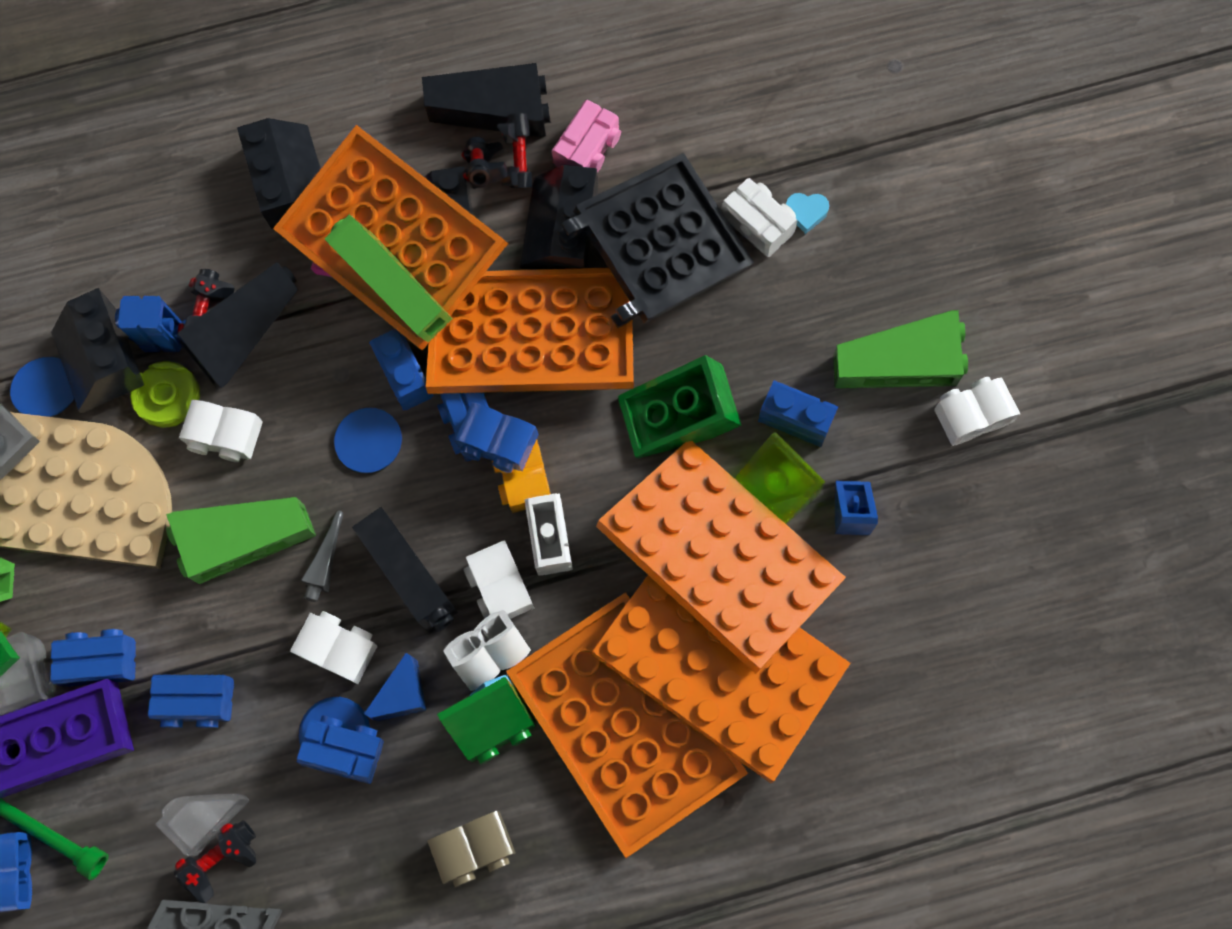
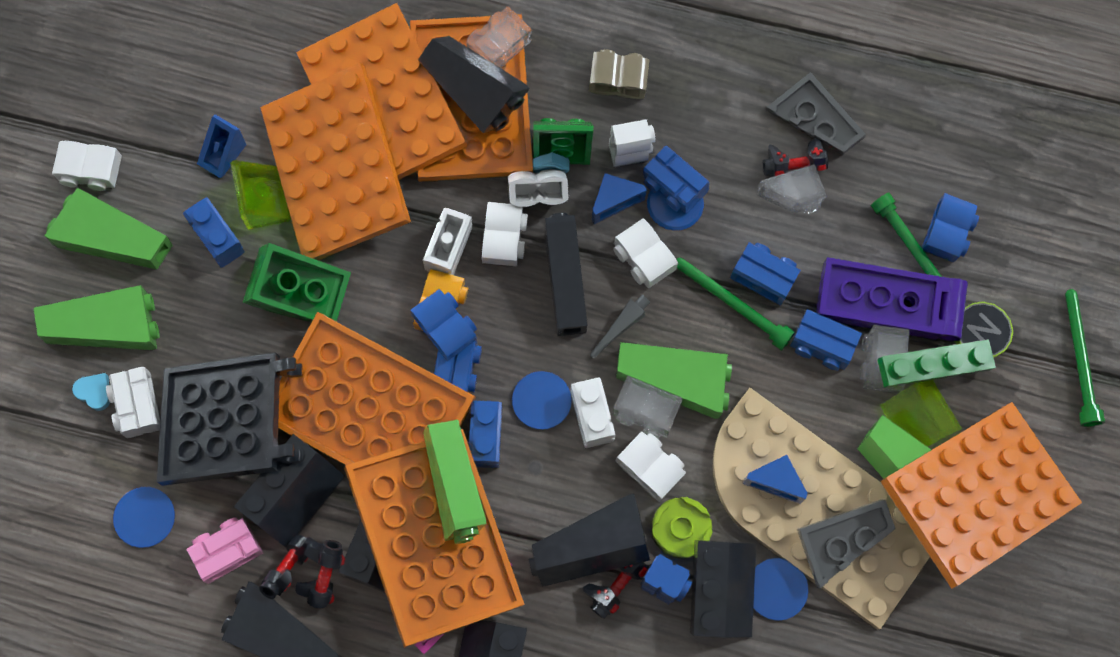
camera: 160 degrees left, 0 degrees up
(80, 475) = (778, 479): none -> blue slope
(146, 640) = (778, 334): none -> green piece
(251, 481) = (646, 407): none -> clear brick
(304, 447) = (592, 412): none -> white brick
(408, 760) = (631, 142): none -> white brick
(621, 723) = (474, 83): none -> black slope
(627, 798) = (501, 37): none -> clear brick
(682, 131) = (144, 517): none -> blue piece
(844, 271) = (101, 320): none -> bright green slope

